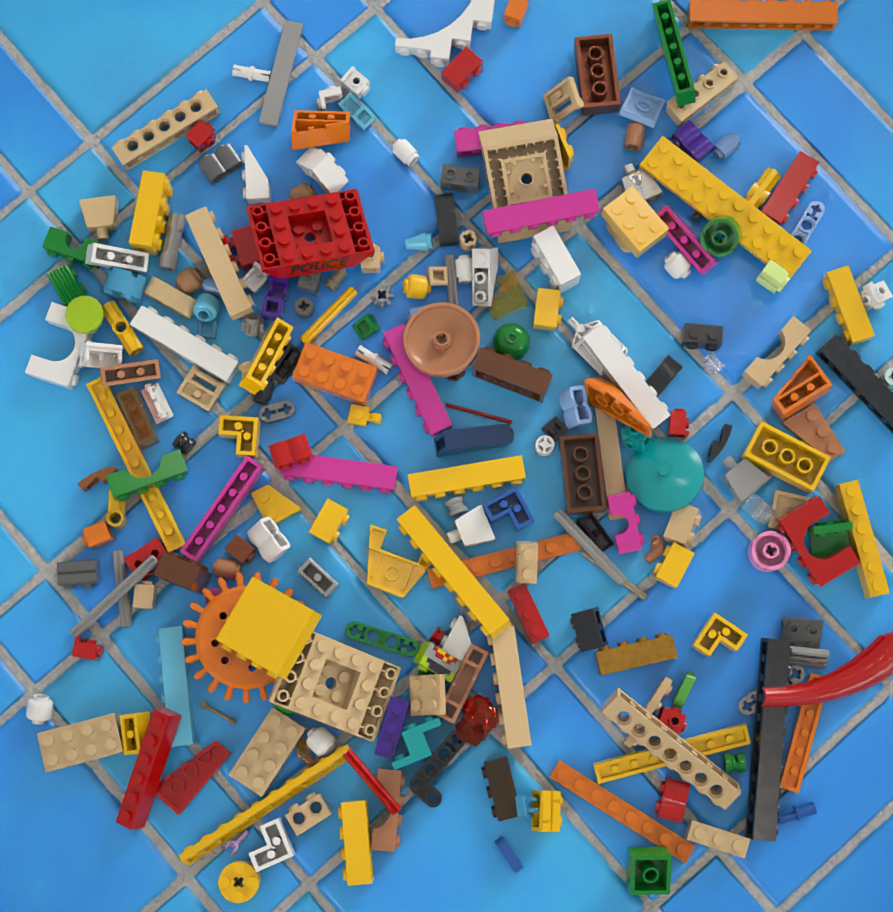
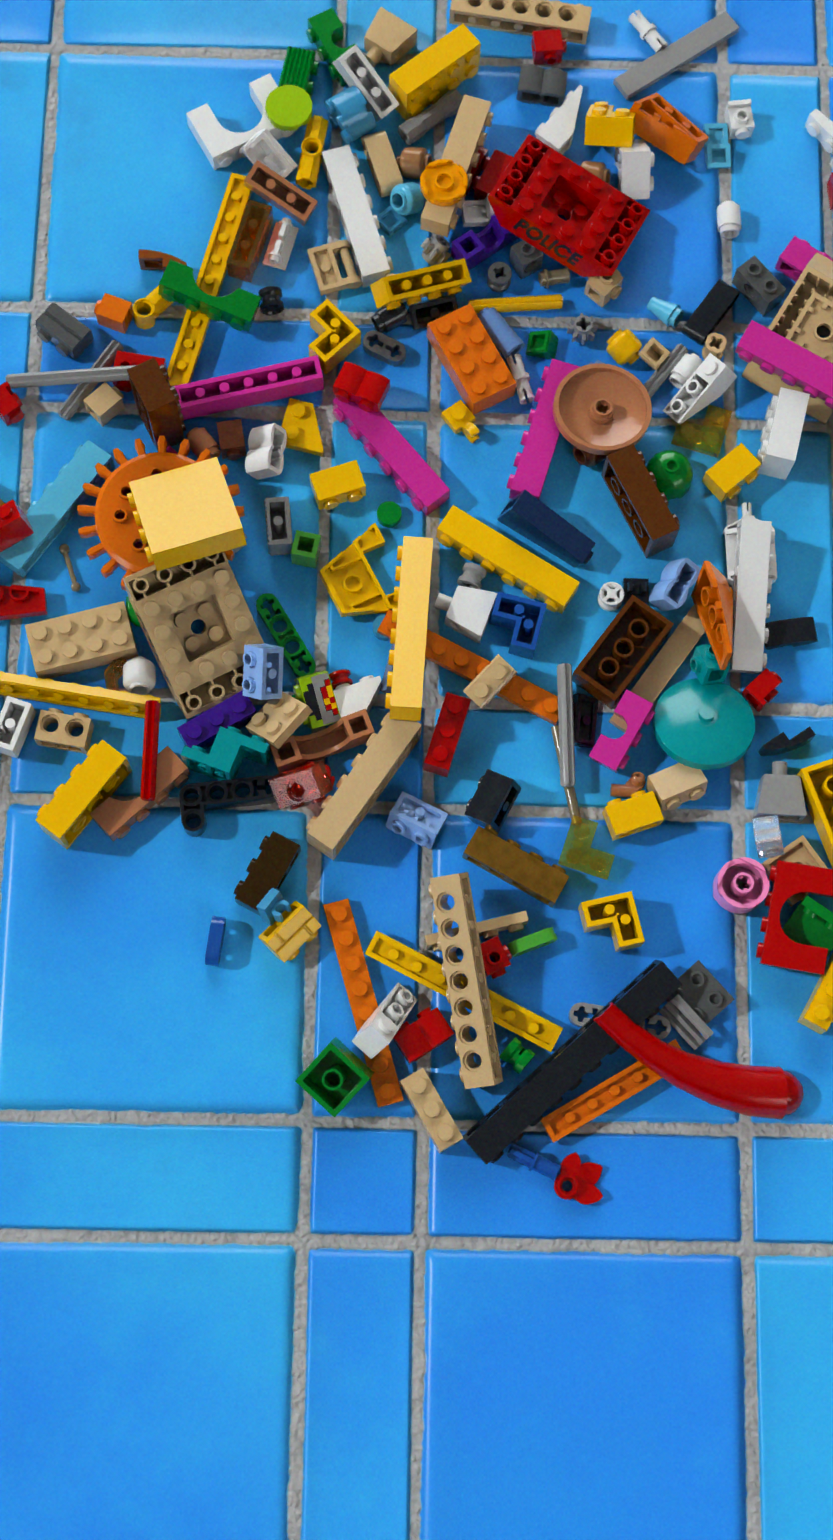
camera: 35 degrees right, 5 degrees down
(224, 283) = (443, 182): none -> light orange tile
(288, 159) = (608, 126): none -> yellow brick
(330, 95) = (703, 110): white bracket -> none
(336, 342) = (500, 332): none -> medium blue brick
(347, 577) = (306, 549): none -> bright green brick
(373, 511) = (389, 514): none -> green tile
(395, 677) = (263, 671): none -> light blue brick
(478, 413) = (575, 514): red axle -> none
(556, 679) = (416, 820): none -> light blue bracket
(647, 813) = (385, 1021): none -> white slope
(665, 614) = (578, 852): none -> clear yellow plate
(829, 797) = (581, 1178): none -> red plate

